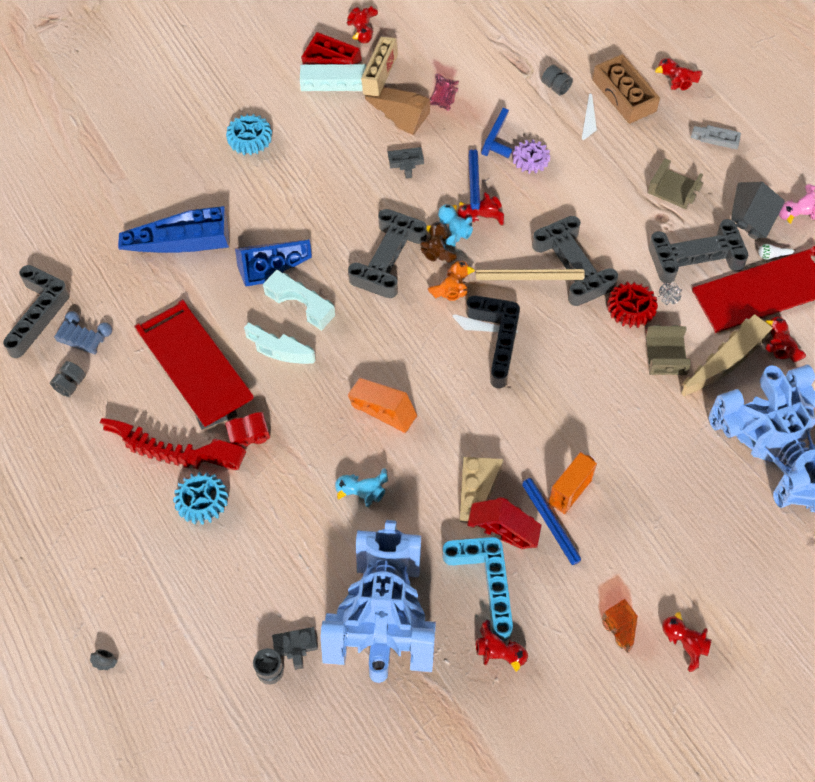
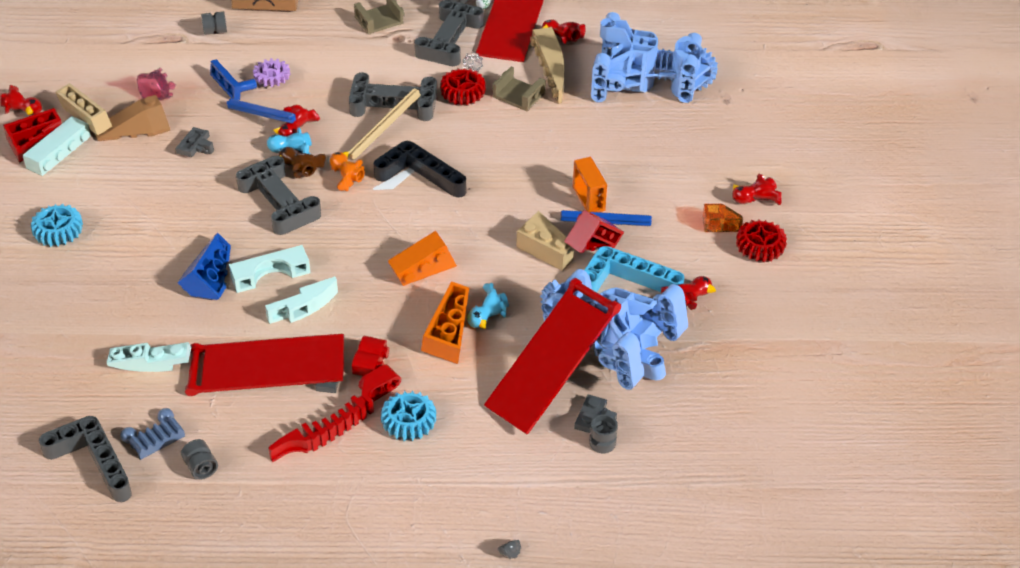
camera: 60 degrees left, 15 degrees down
(151, 280) = (146, 359): none -> light aqua slope
(180, 233) = (119, 313): blue wedge -> none
(311, 573) = (550, 357): none -> red flag
(319, 467) = (445, 329): none -> orange wedge
(590, 123) = (275, 33): white sticker -> none
(626, 687) = (761, 240): none -> red gear

